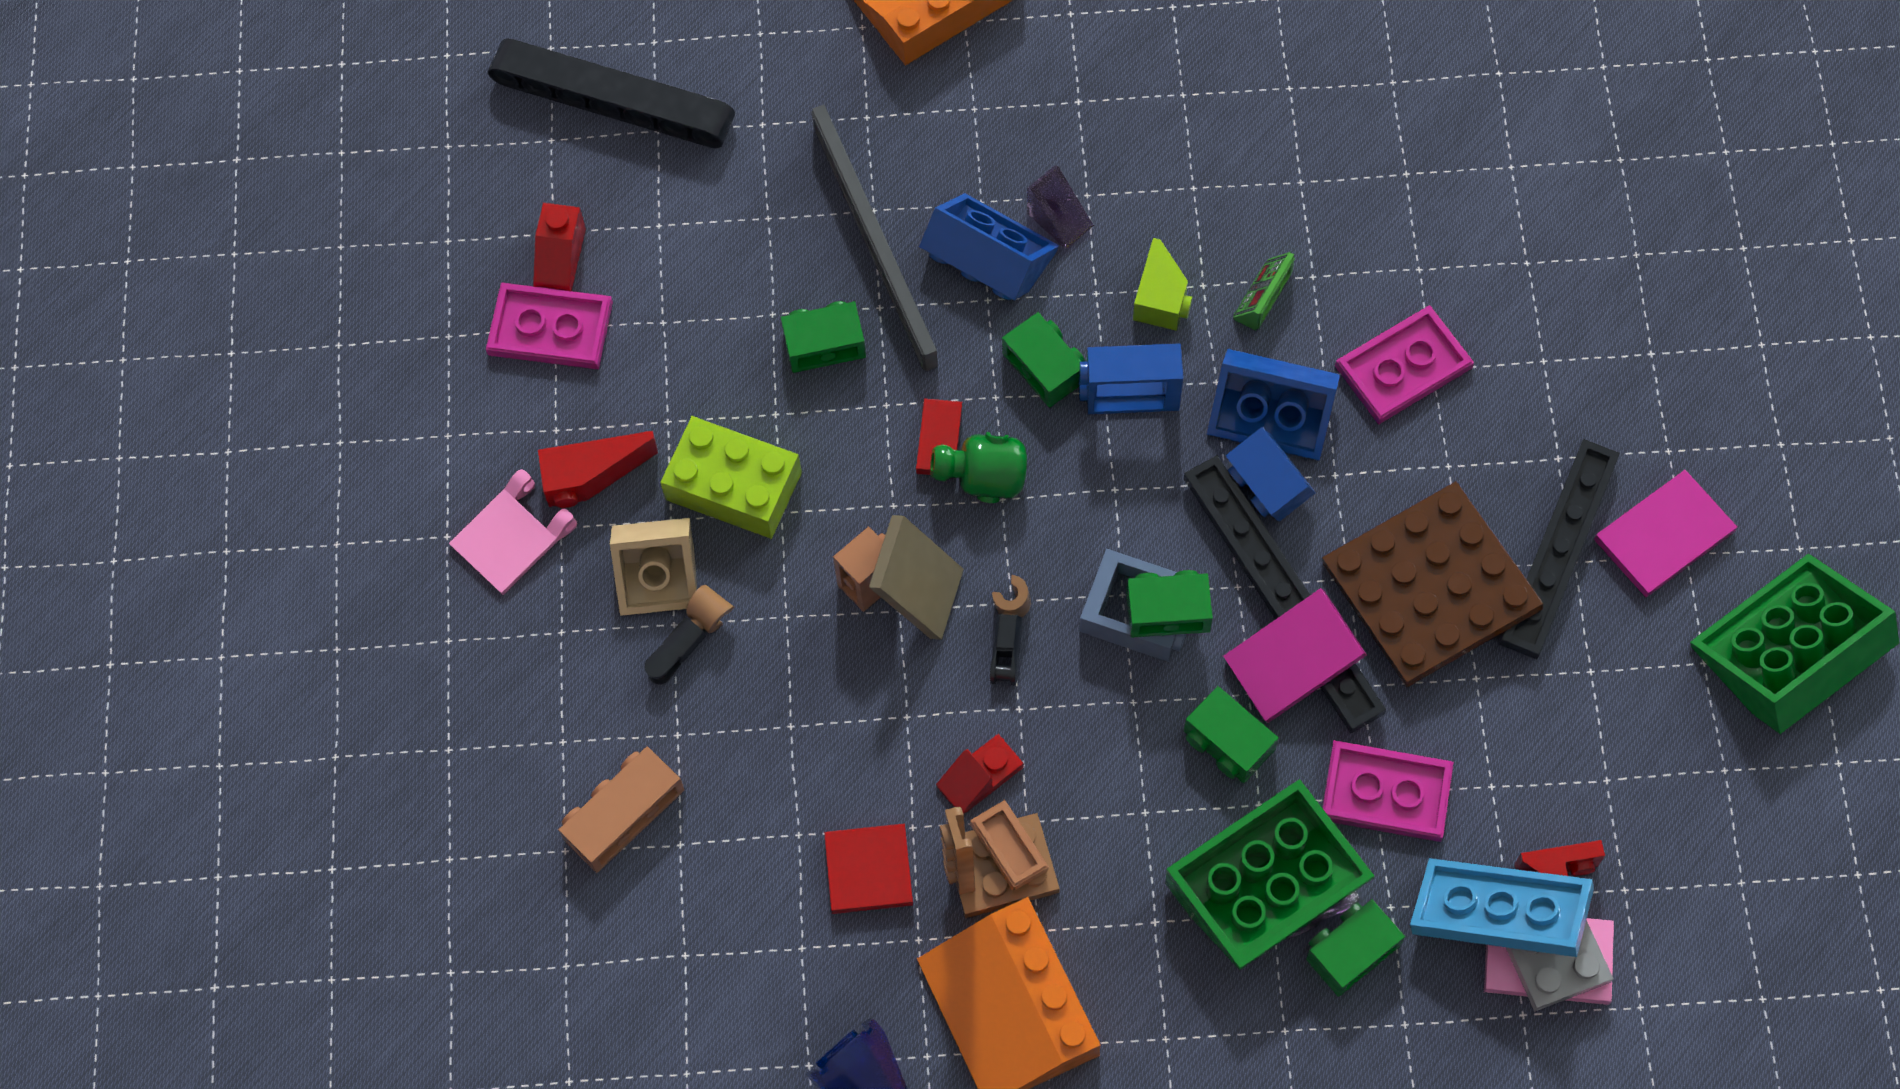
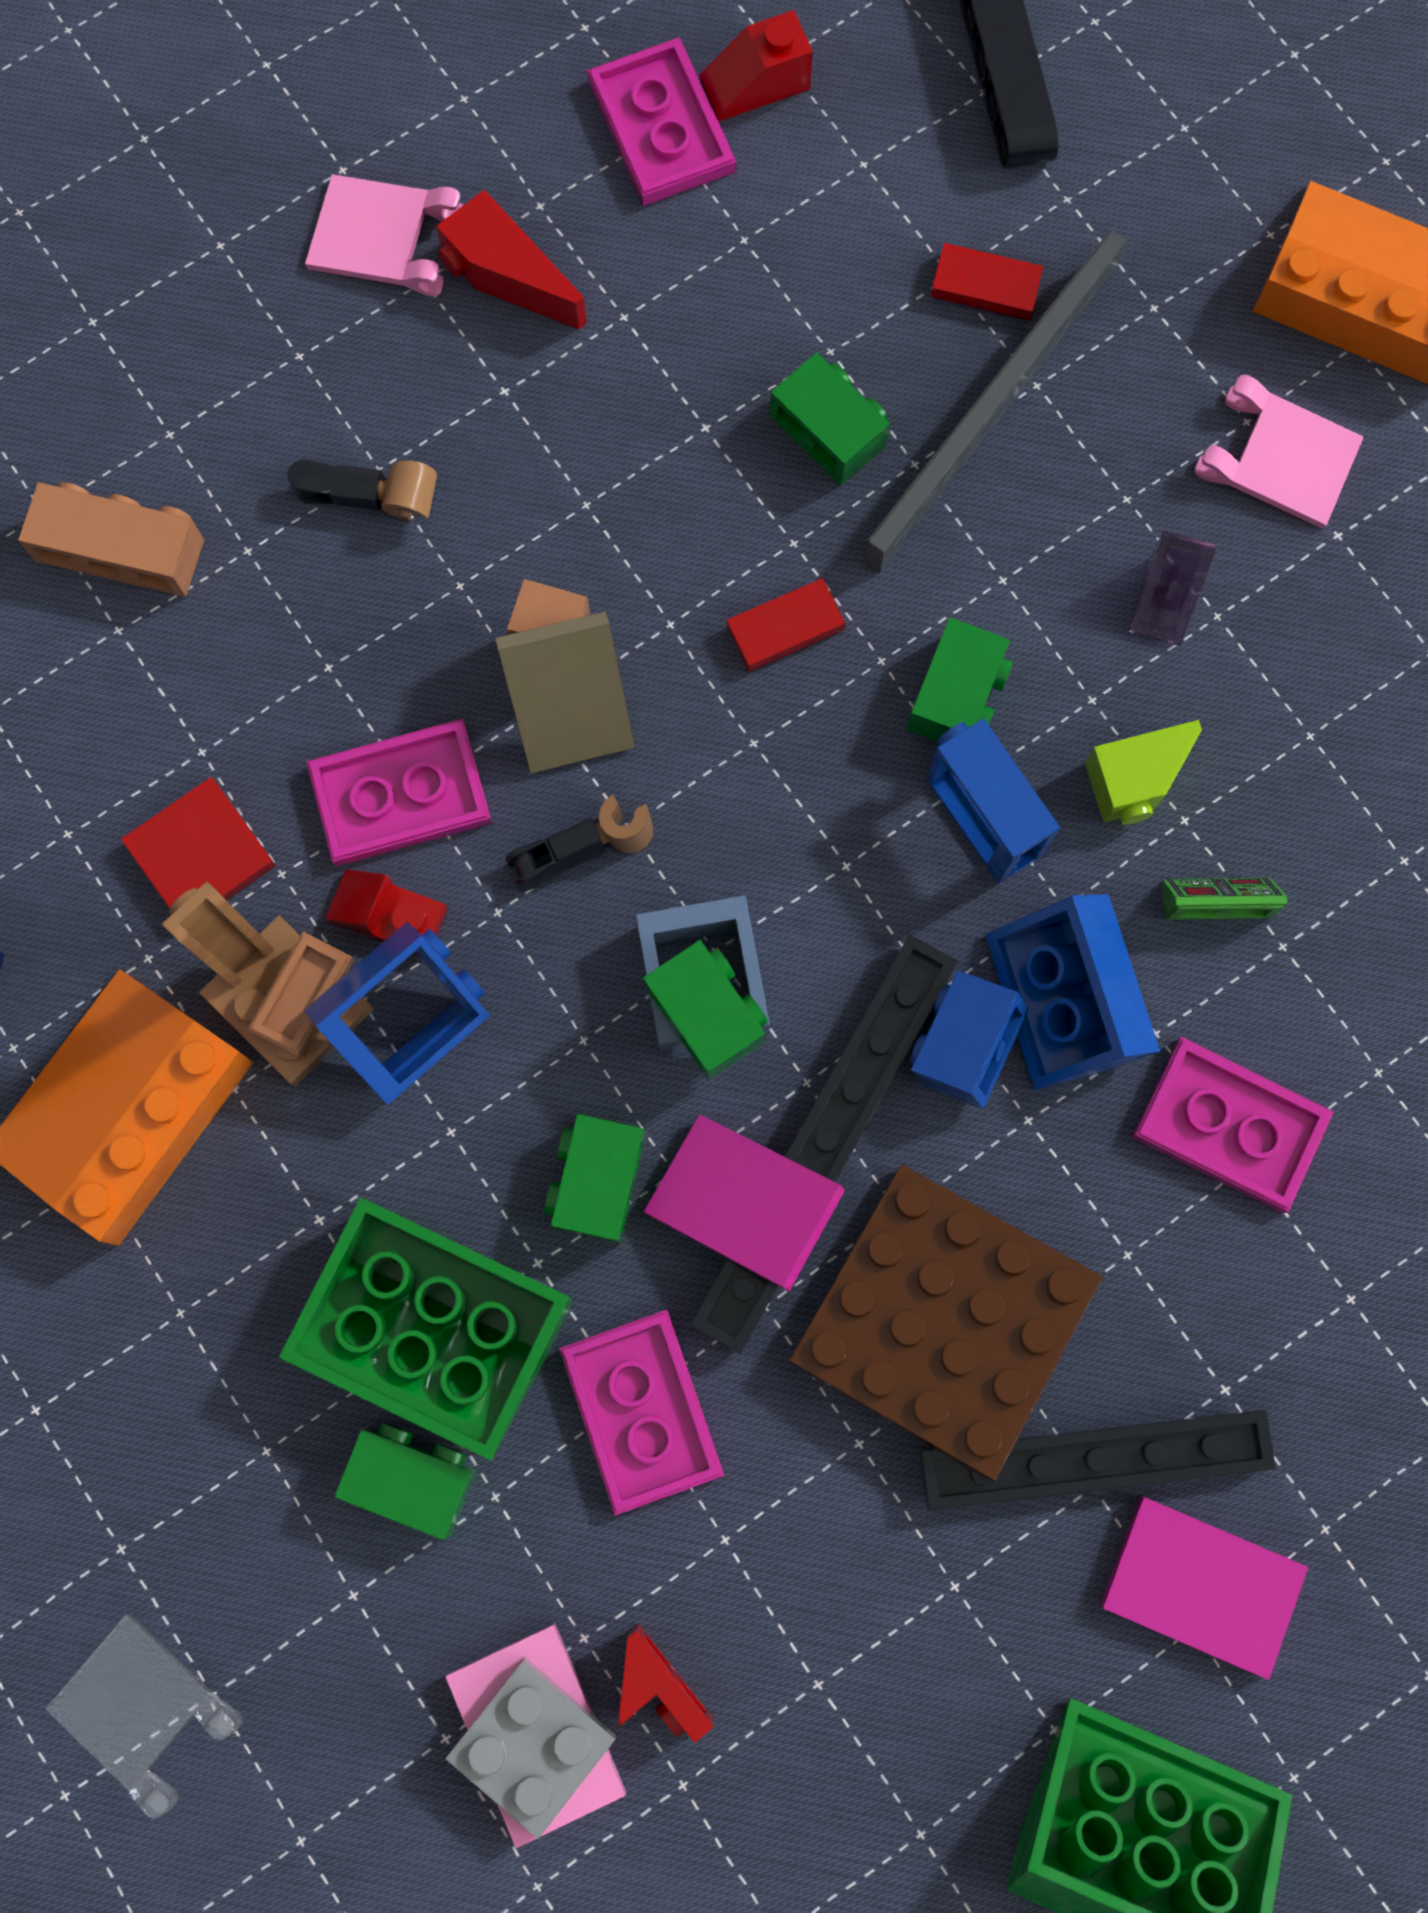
camera: 55 degrees right, 10 degrees up
(653, 566) = (427, 398): tan slope -> none
(731, 477) = (586, 420): lime brick -> none
(788, 199) = (986, 281): none -> red tile
(904, 725) = (398, 792): none -> dark pink tile
(985, 466) = (773, 695): green piece -> none
(987, 246) = (1068, 535): blue slope -> none
(1014, 98) = (1289, 457): none -> bright pink flag
(1084, 783) = (426, 1046): none -> blue window
(1502, 907) = (548, 1648): dark azure plate -> none

